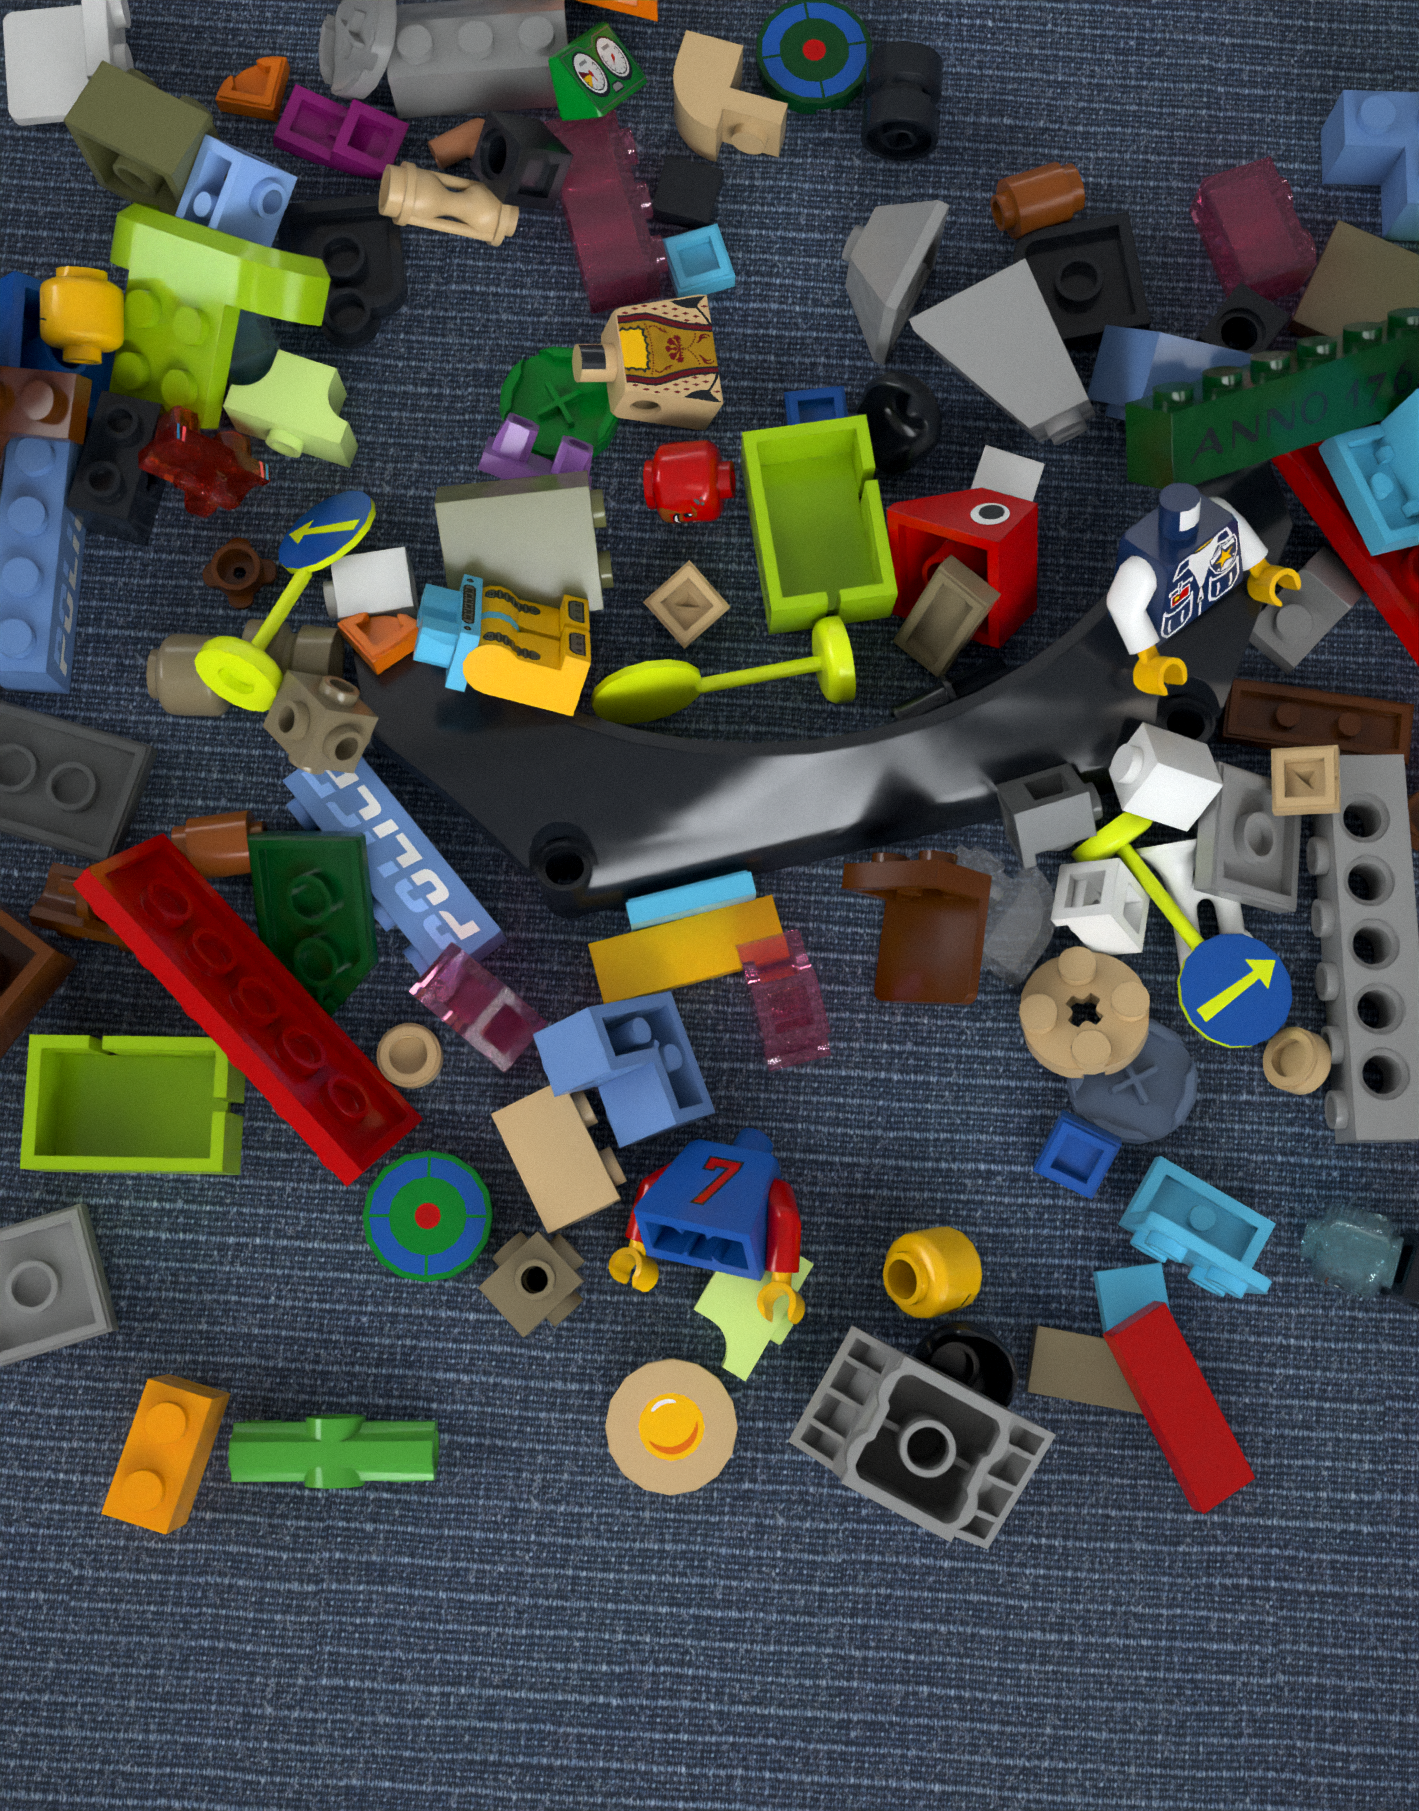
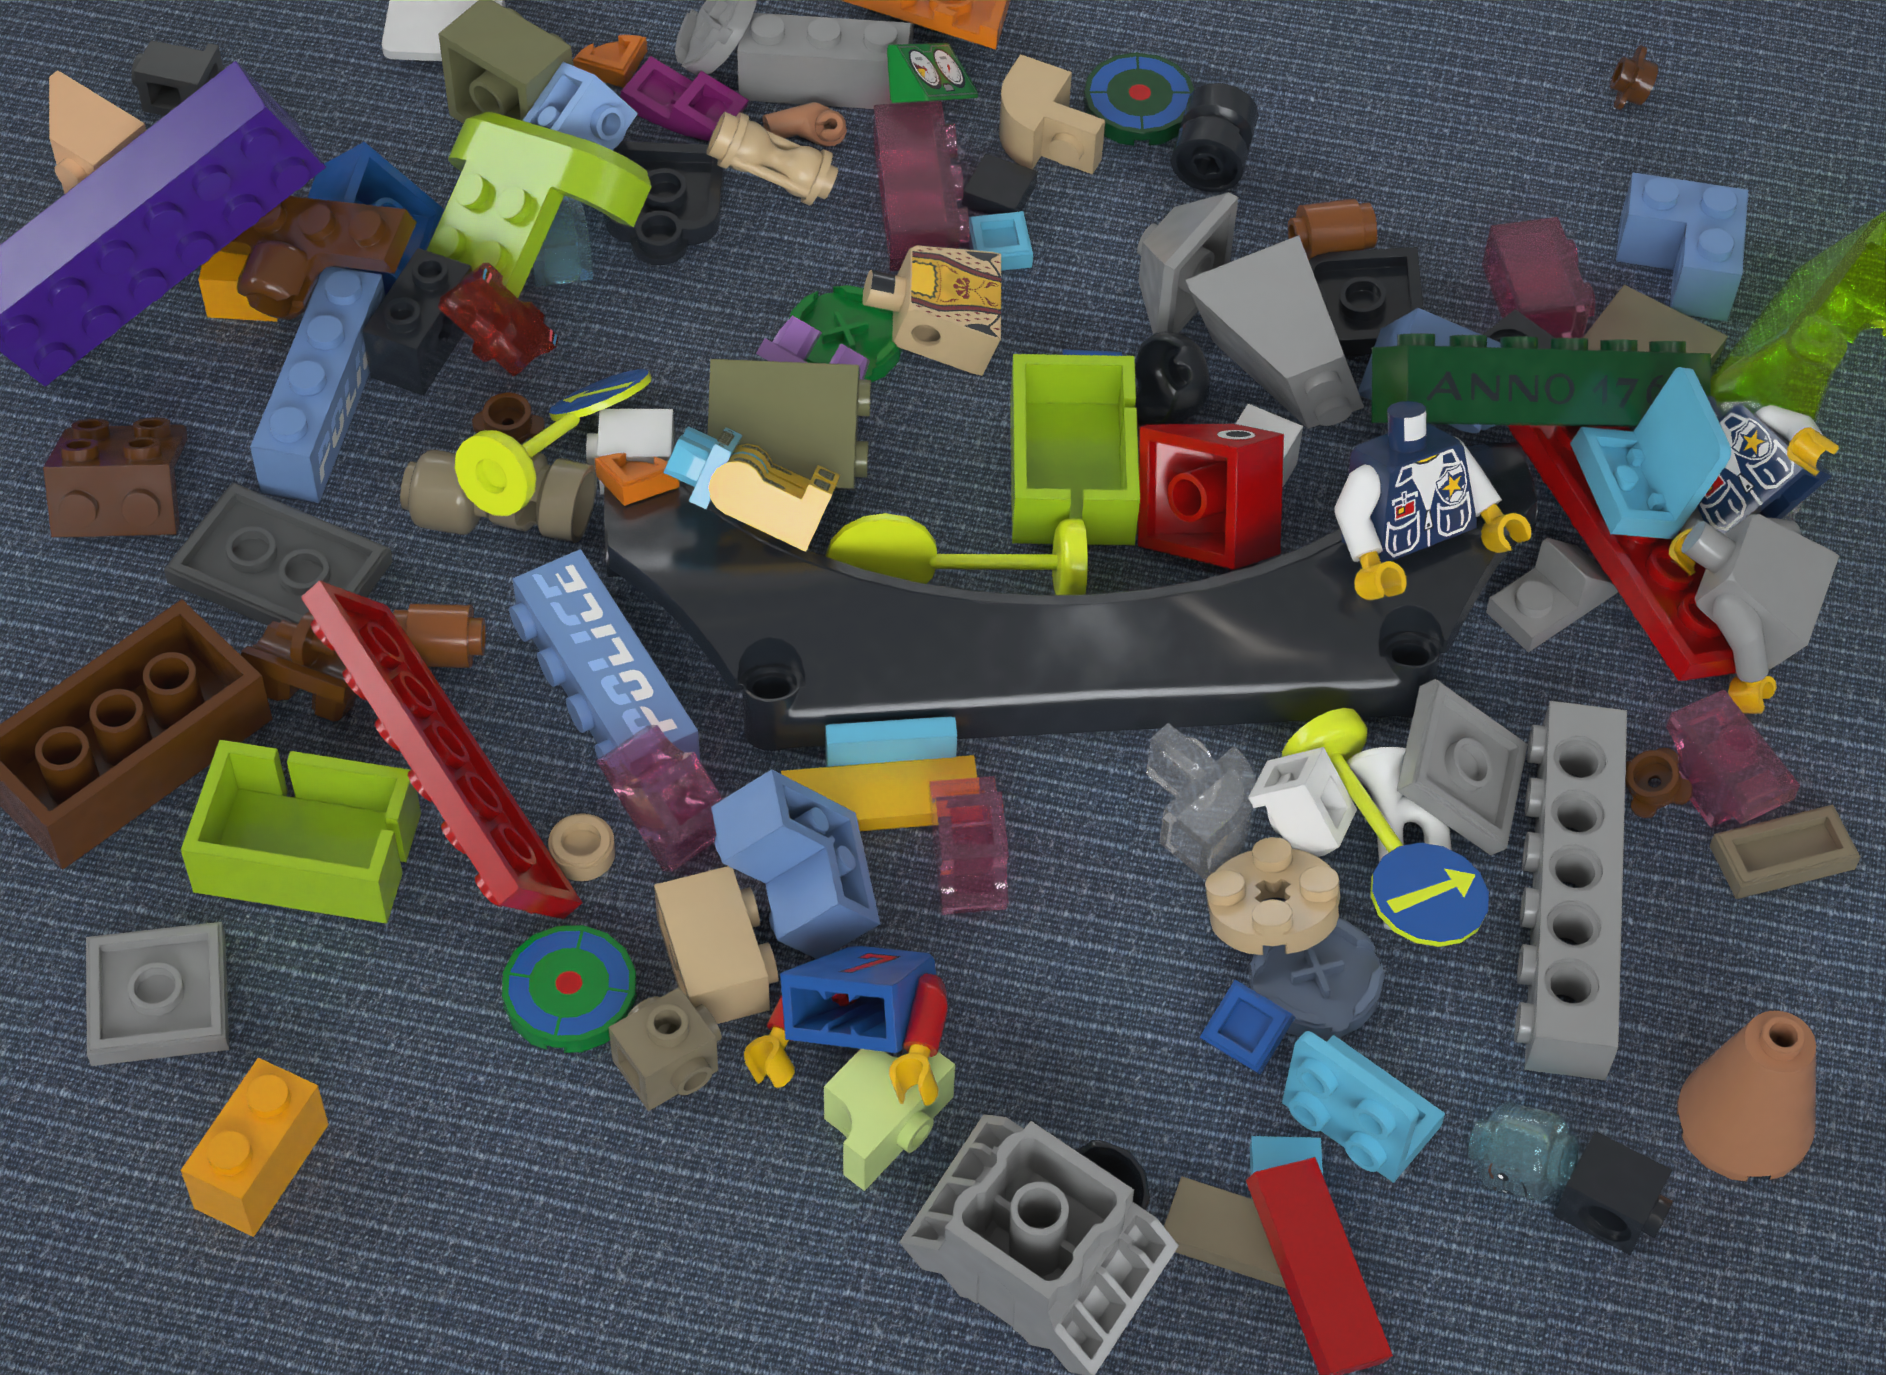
camera: 10 degrees right, 25 degrees down
(81, 314) = (417, 179): yellow head -> none
(295, 410) = (593, 299): yellowish green brick -> none
(316, 908) = (520, 691): dark green tile -> none
(320, 722) = (563, 521): dark tan brick -> none
(334, 1451) = (426, 1177): bright green piece -> none
(521, 161) = (847, 129): black brick -> none
(671, 1426) = (779, 1216): tan tile -> none
(687, 604) = (937, 502): tan tile -> none
(688, 482) = (956, 404): red head -> none
(929, 925) = (1132, 776): reddish brown bracket -> none
(932, 1272) = (1077, 1098): yellow head -> none
(946, 616) = (1186, 531): dark tan tile -> none
(1047, 811) = (1260, 705): dark grey brick -> none
(1164, 777) = (1377, 684): white brick -> none
(1294, 716) = (1526, 684): reddish brown tile -> none
(1297, 1060) = (1488, 973): tan tile -> none
(1306, 780) = (1523, 715): tan tile -> none

